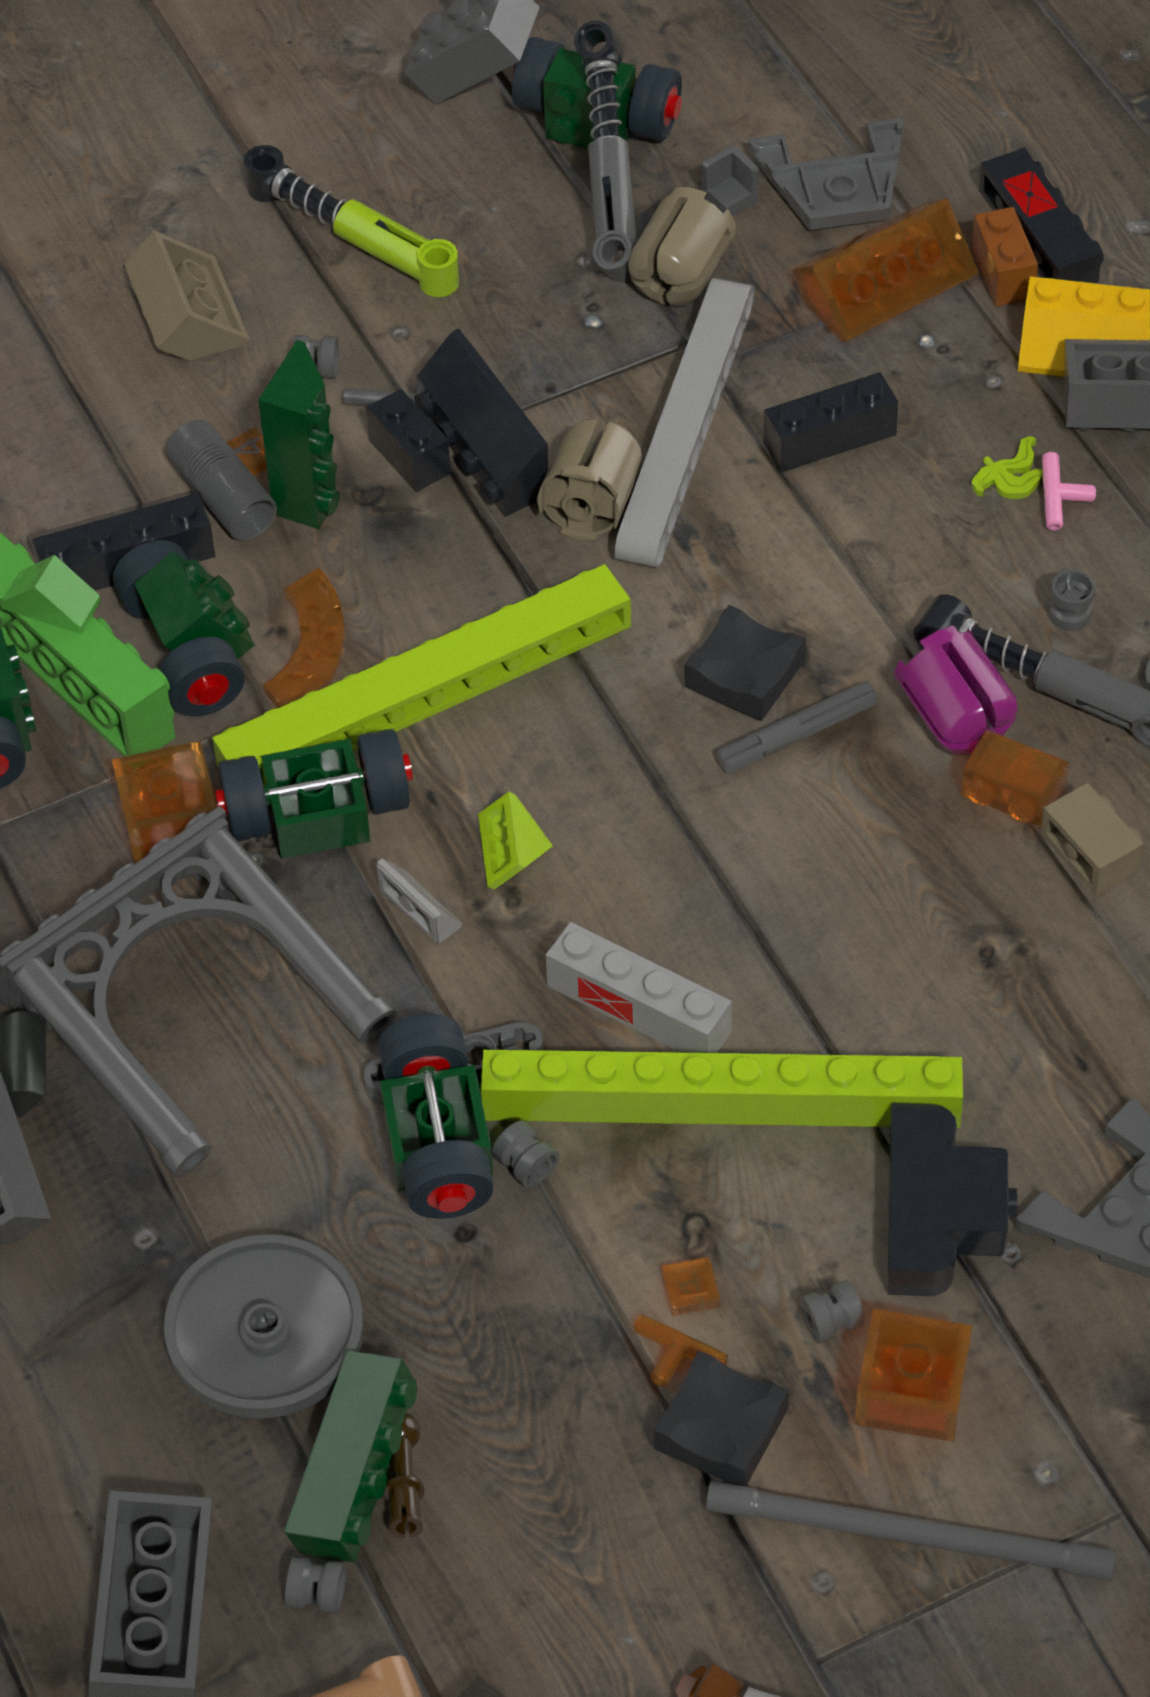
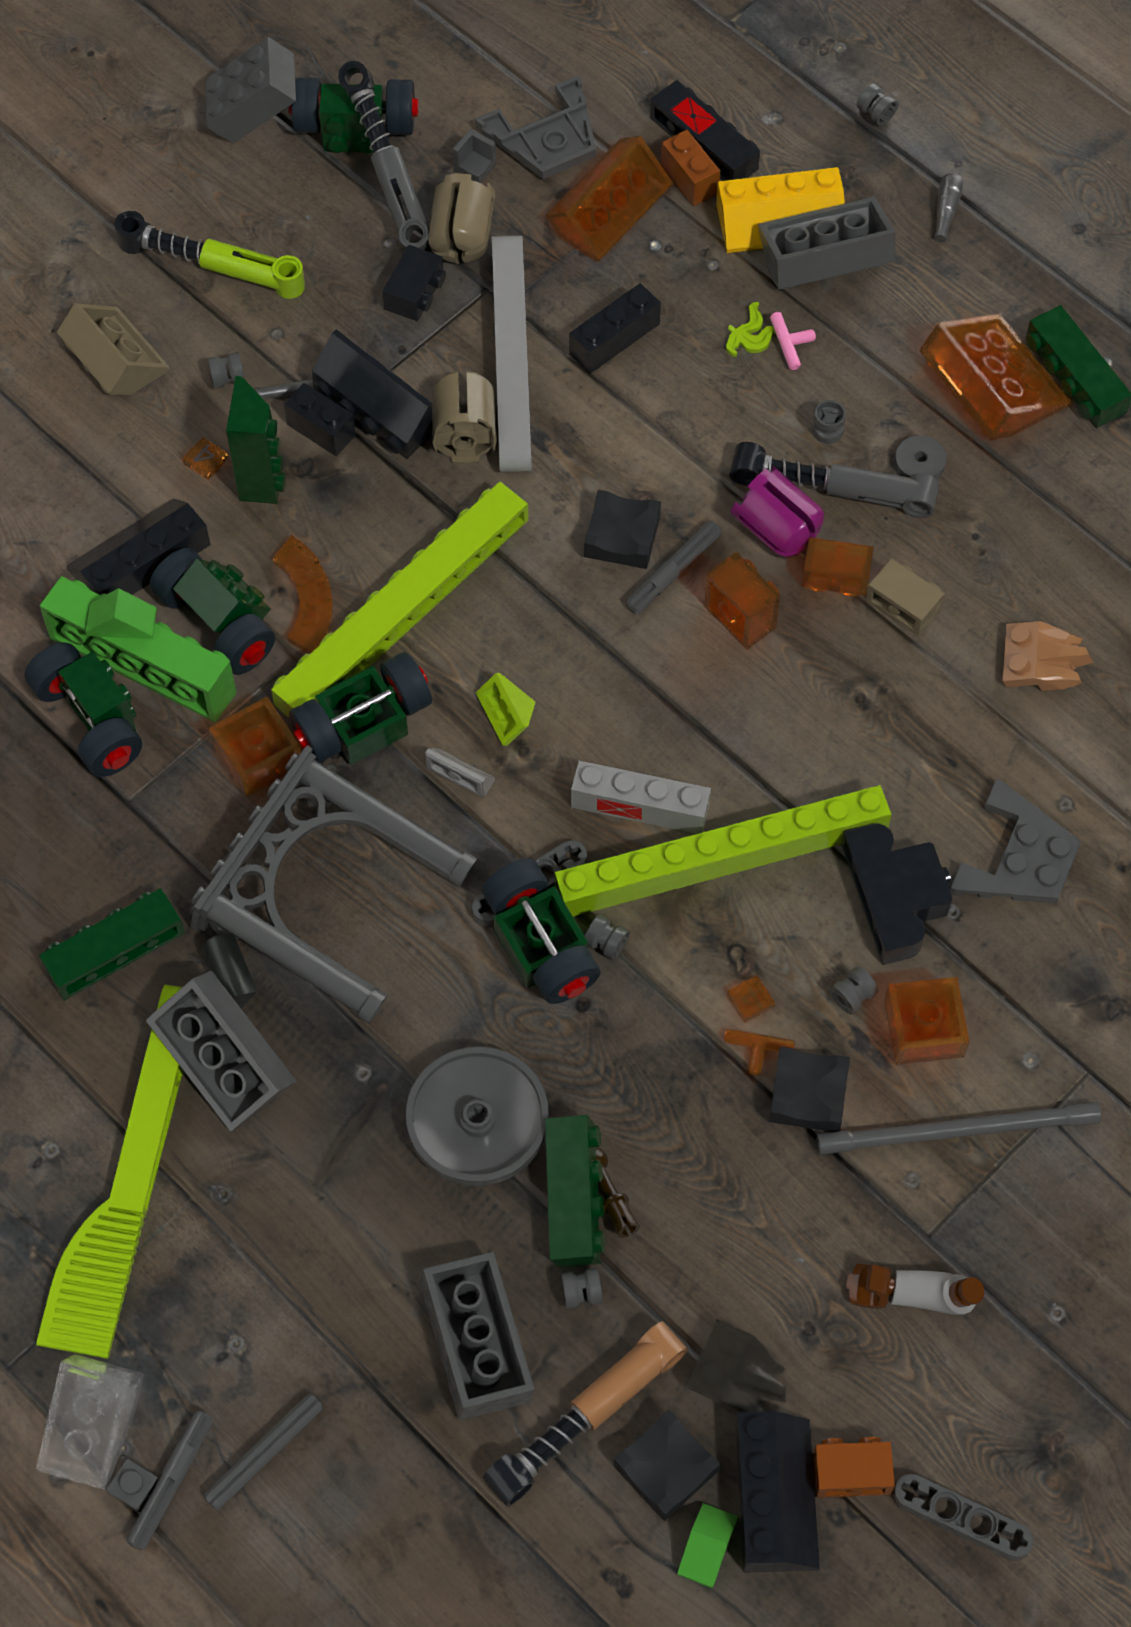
camera: 20 degrees left, 10 degrees up
(221, 479) = (196, 485): dark grey piece -> none
(592, 310) = (413, 283): none -> black brick
(866, 783) = (742, 600): none -> clear orange brick

